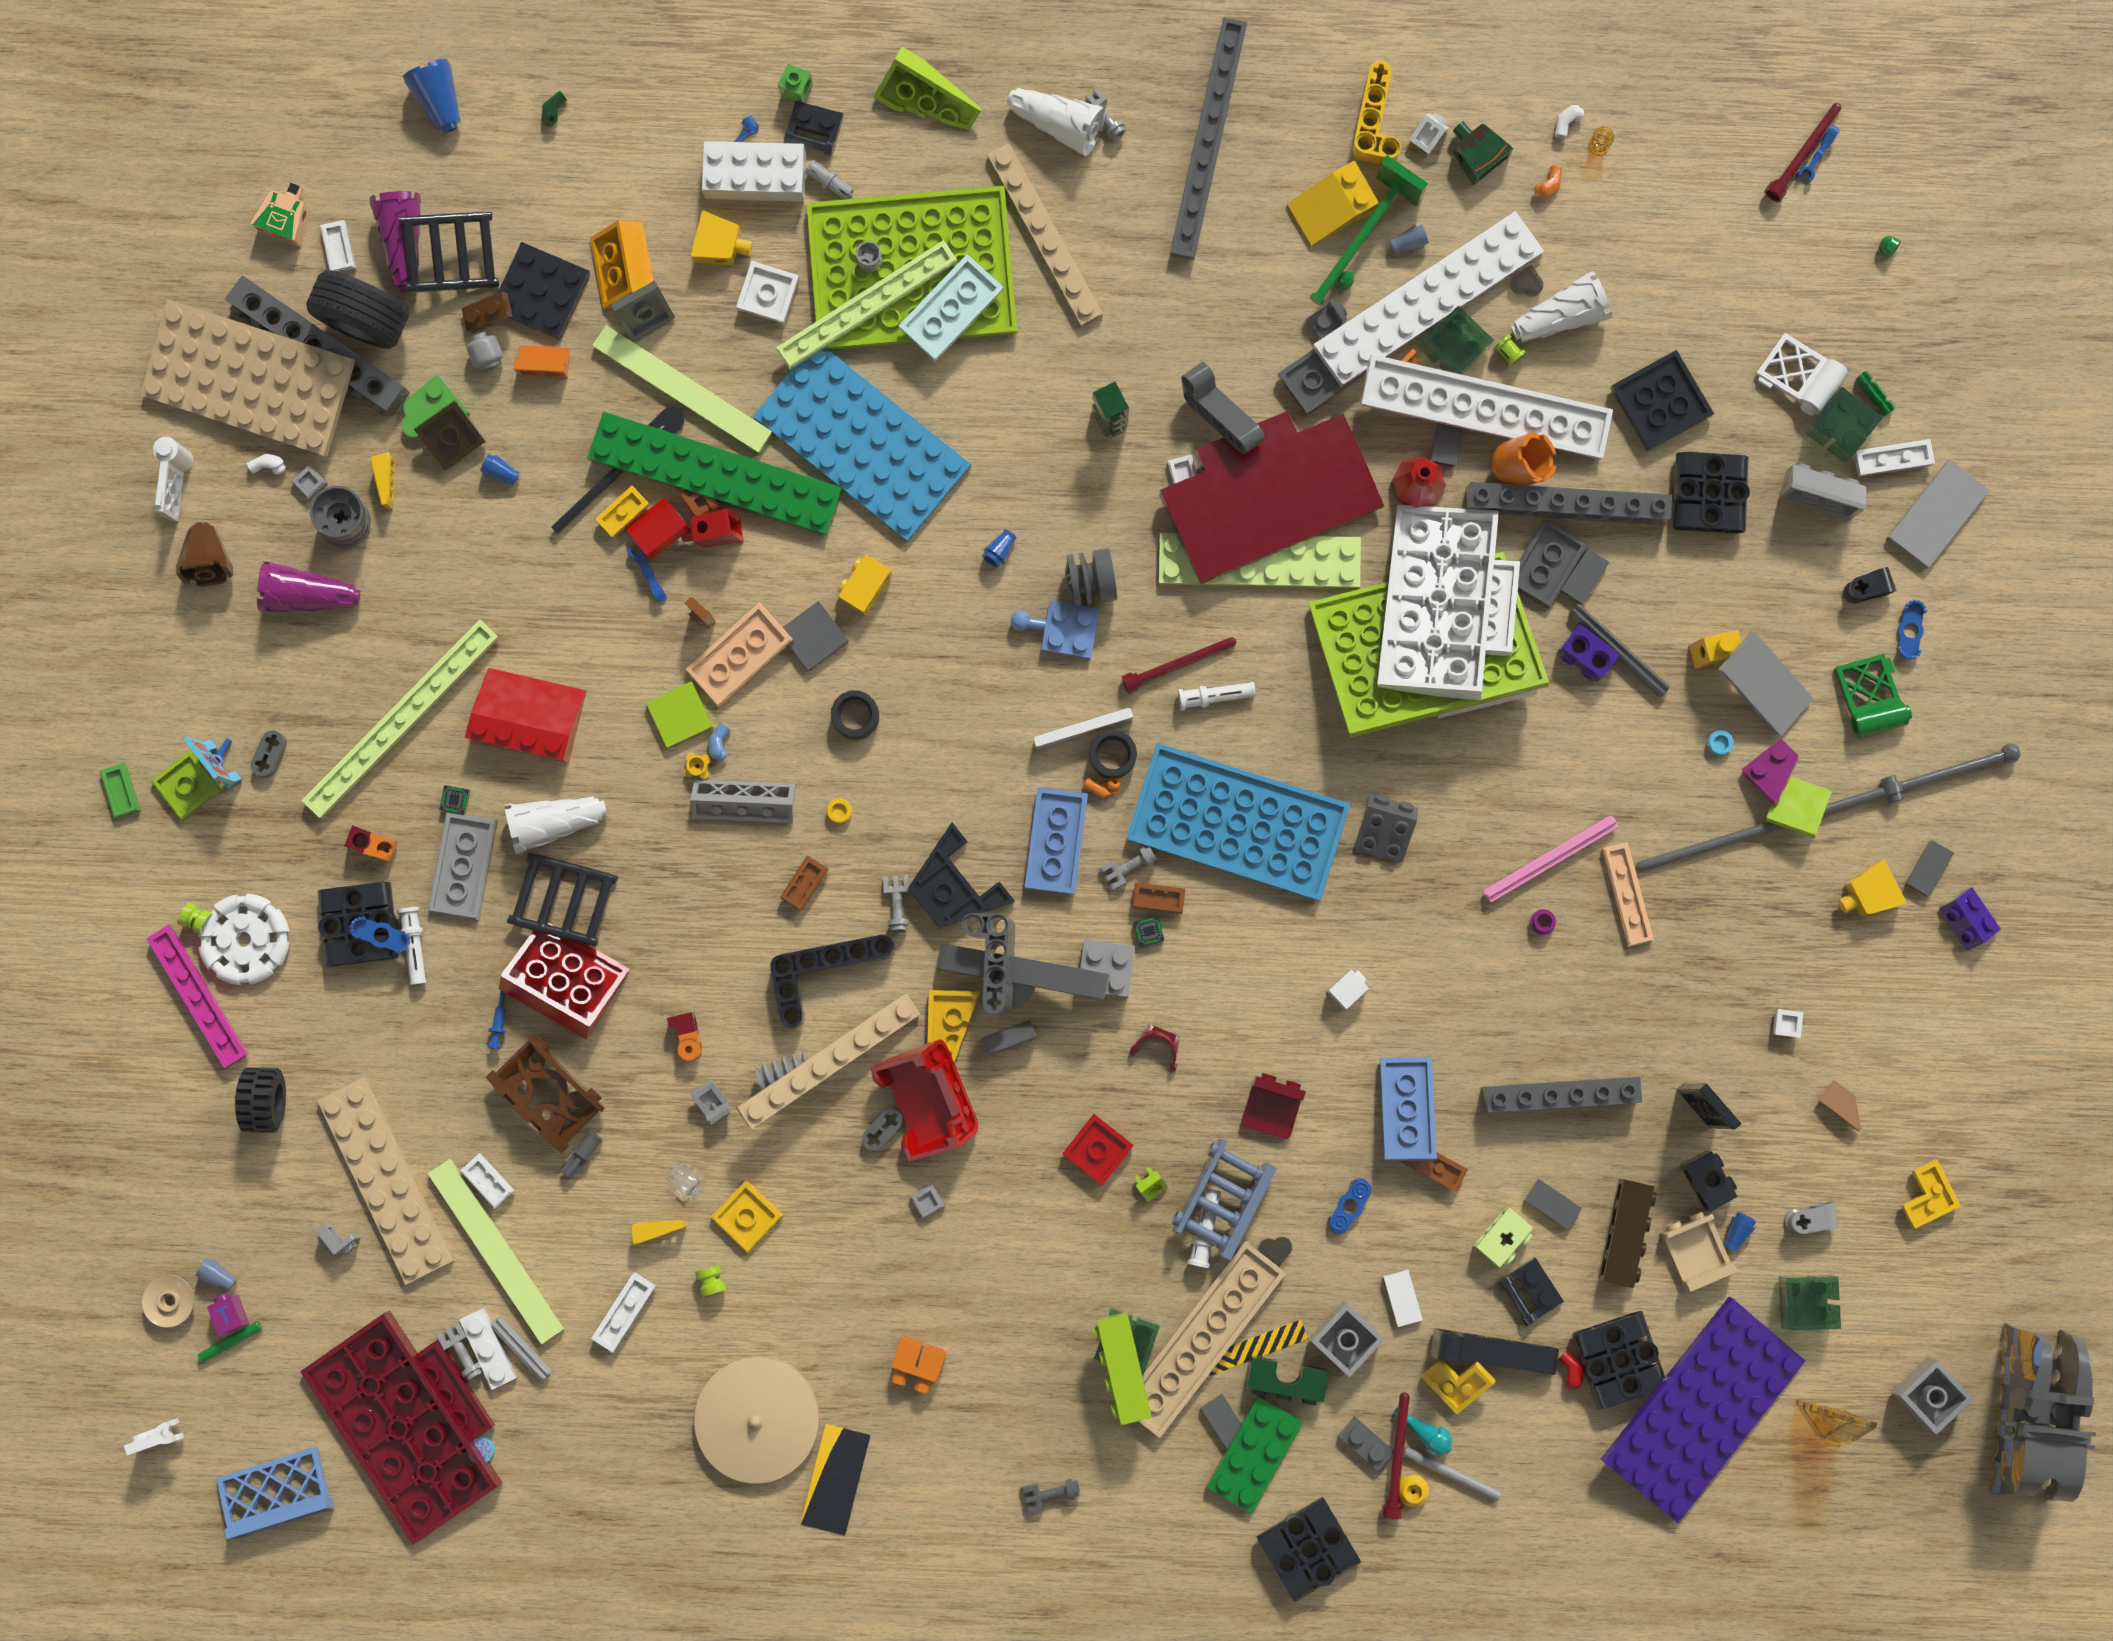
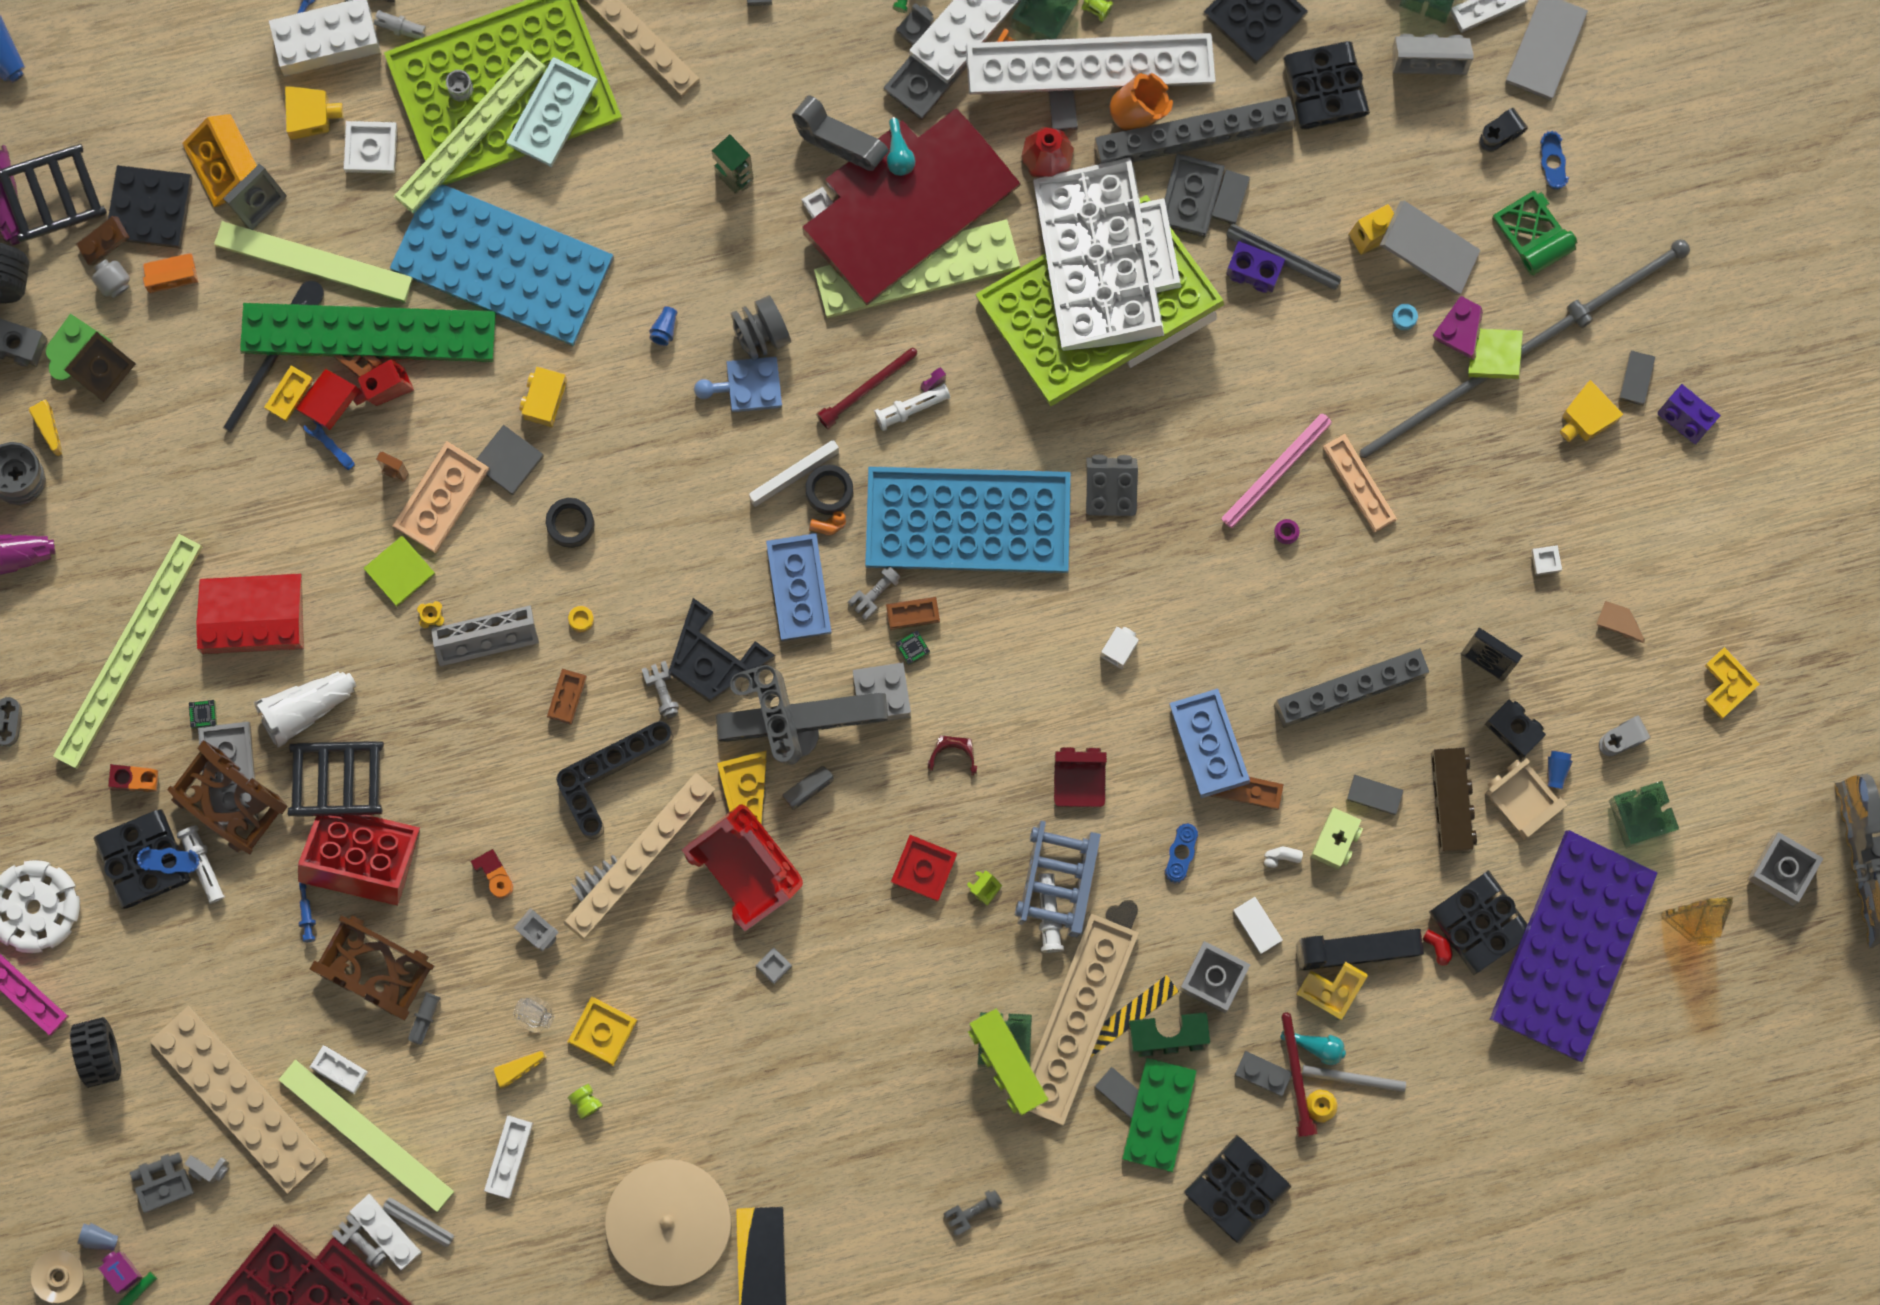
camera: 20 degrees left, 5 degrees down
(290, 1248) = (165, 1189): none -> dark grey plate
(486, 898) = (216, 761): none -> reddish brown fence
(498, 469) = (157, 387): blue cone -> none
(550, 108) = (109, 33): dark green arm -> none
(715, 742) = (442, 588): medium blue arm -> none
(877, 1125) = (716, 912): dark grey beam -> none
(927, 1369) = (797, 1122): orange hips -> none
(1247, 674) = (937, 378): none -> magenta tile
(1274, 450) = (900, 159): none -> teal piece
(1446, 1235) = (1272, 856): none -> white arm
(1537, 1287) = (1381, 876): black plate -> none

